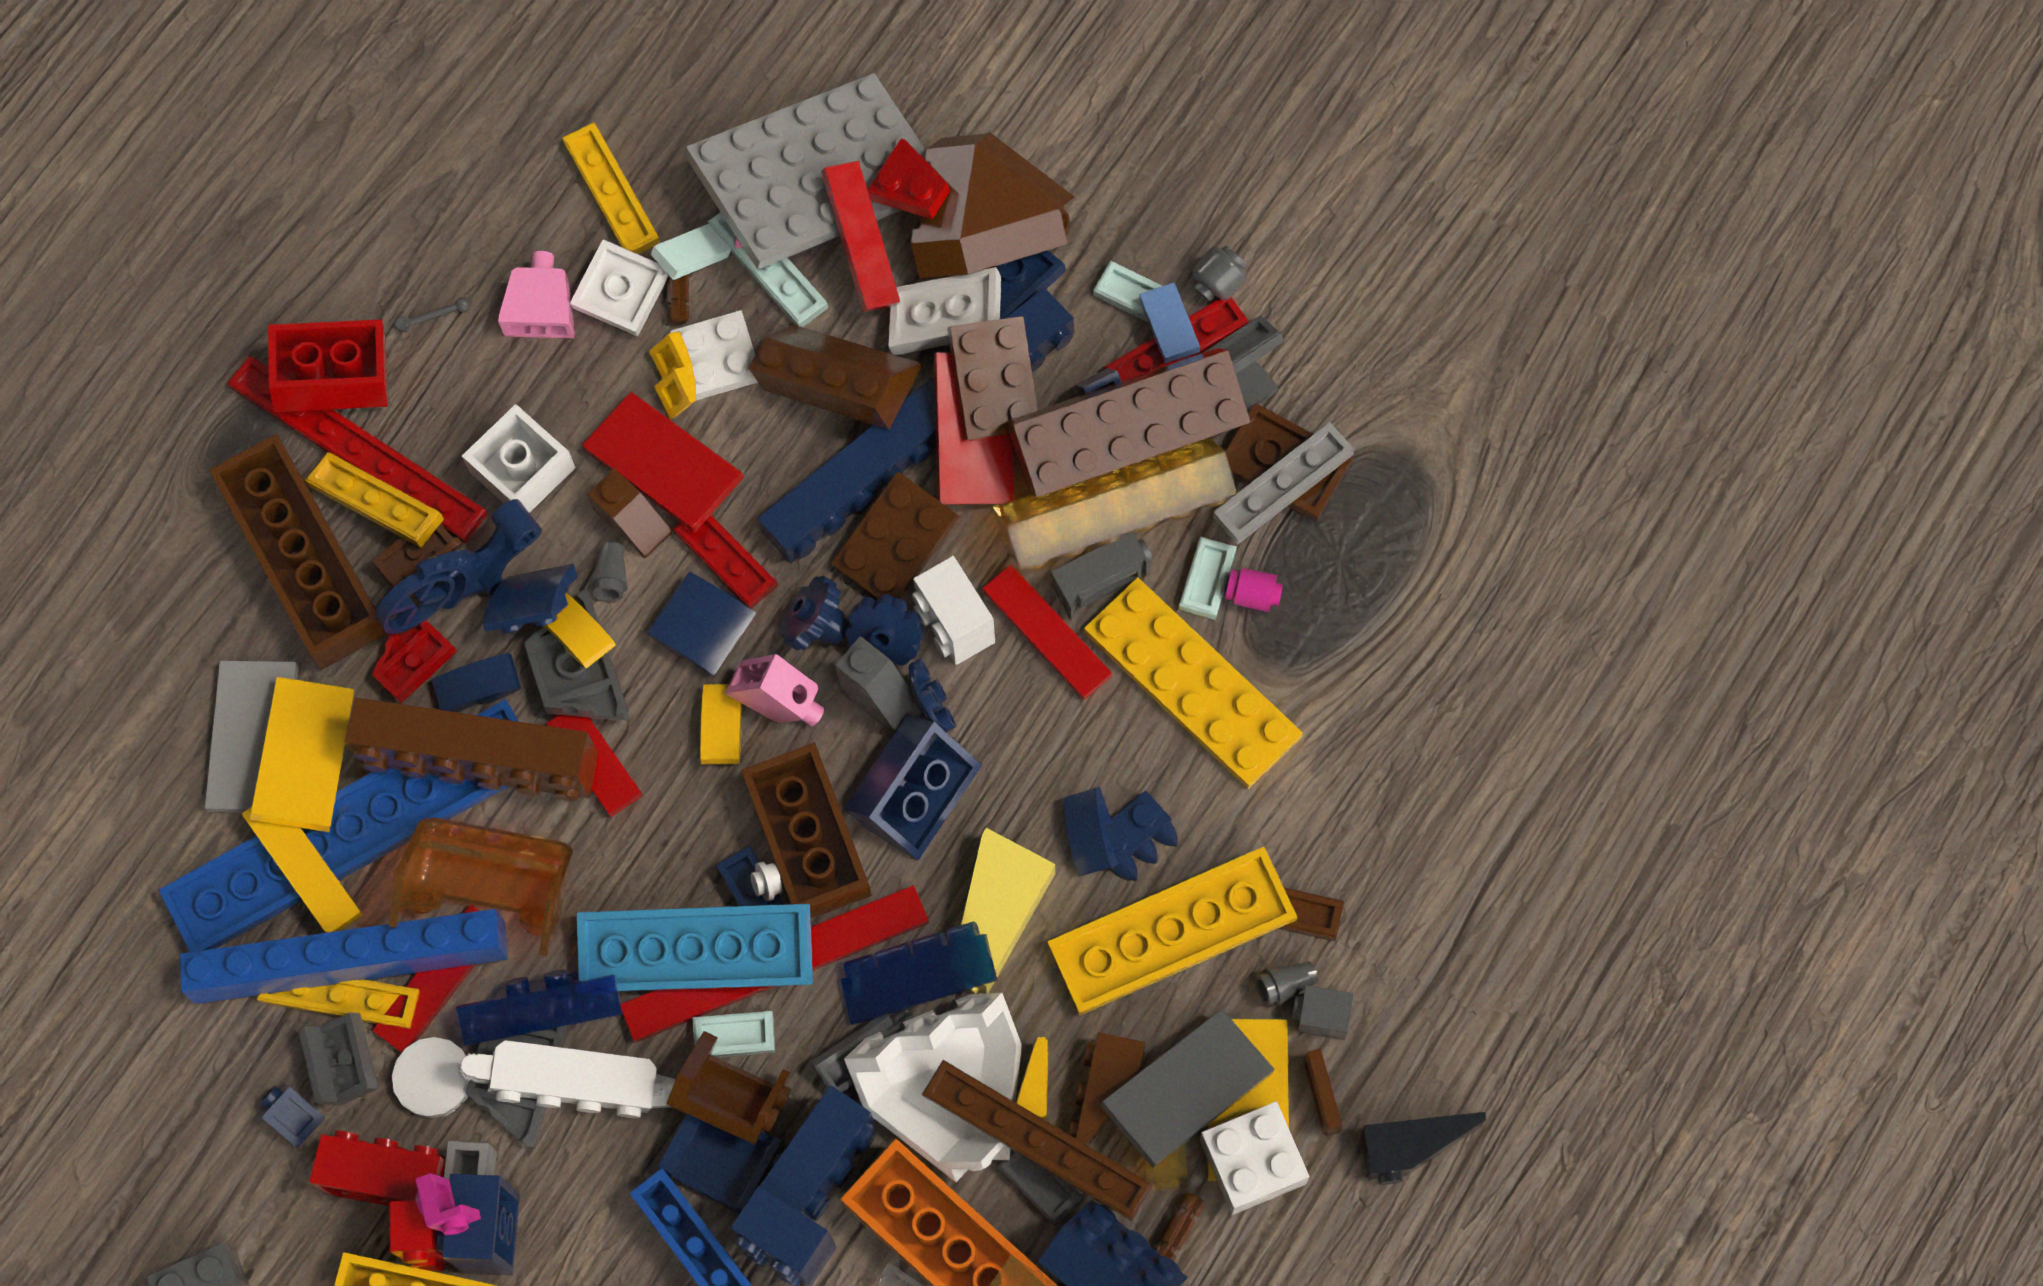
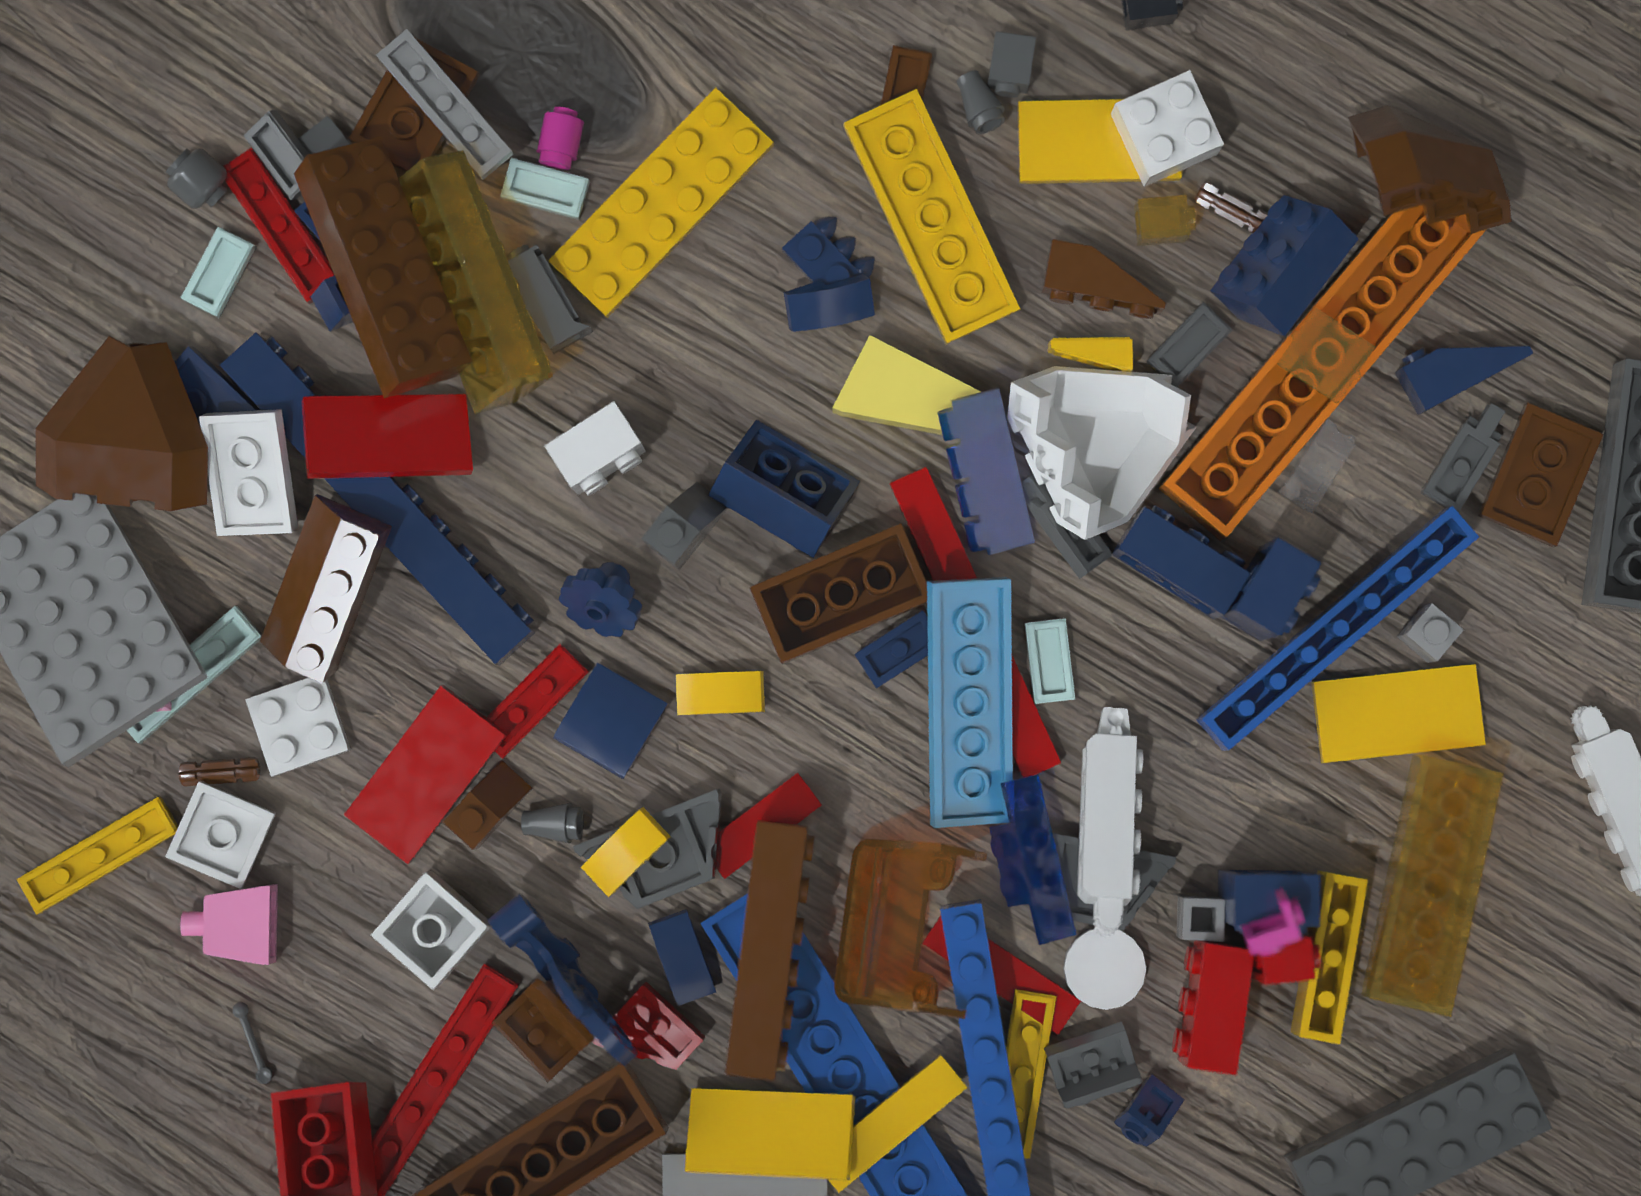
camera: 90 degrees left, 15 degrees up
(374, 499) = (477, 1085): yellow tile -> none
(529, 598) = (591, 903): dark blue slope -> none
(674, 364) = (337, 762): yellow slope -> none
(690, 251) = (178, 758): light aqua tile -> none
(720, 1162) = (1178, 662): dark blue panel -> none
(727, 1094) = (1120, 657): reddish brown panel -> none
(766, 880) = (896, 631): white plate -> none
(775, 690) = (694, 621): bright pink torso -> none
(860, 236) = (164, 566): red tile -> none
(887, 627) = (617, 521): dark blue plant -> none
(895, 538) = (512, 516): reddish brown plate -> none
(909, 183) = (100, 514): red wing -> none
(929, 696) = (686, 475): dark blue dish -> none
(991, 375) = (331, 414): reddish brown plate -> none
(1037, 1140) = (1157, 344): reddish brown tile -> none
(1047, 632) = (609, 355): red tile -> none
(1169, 322) = (256, 231): medium blue tile -> none
(1187, 1088) = (1099, 195): dark grey tile -> none
(1322, 1092) = (1092, 65): reddish brown tile -> none

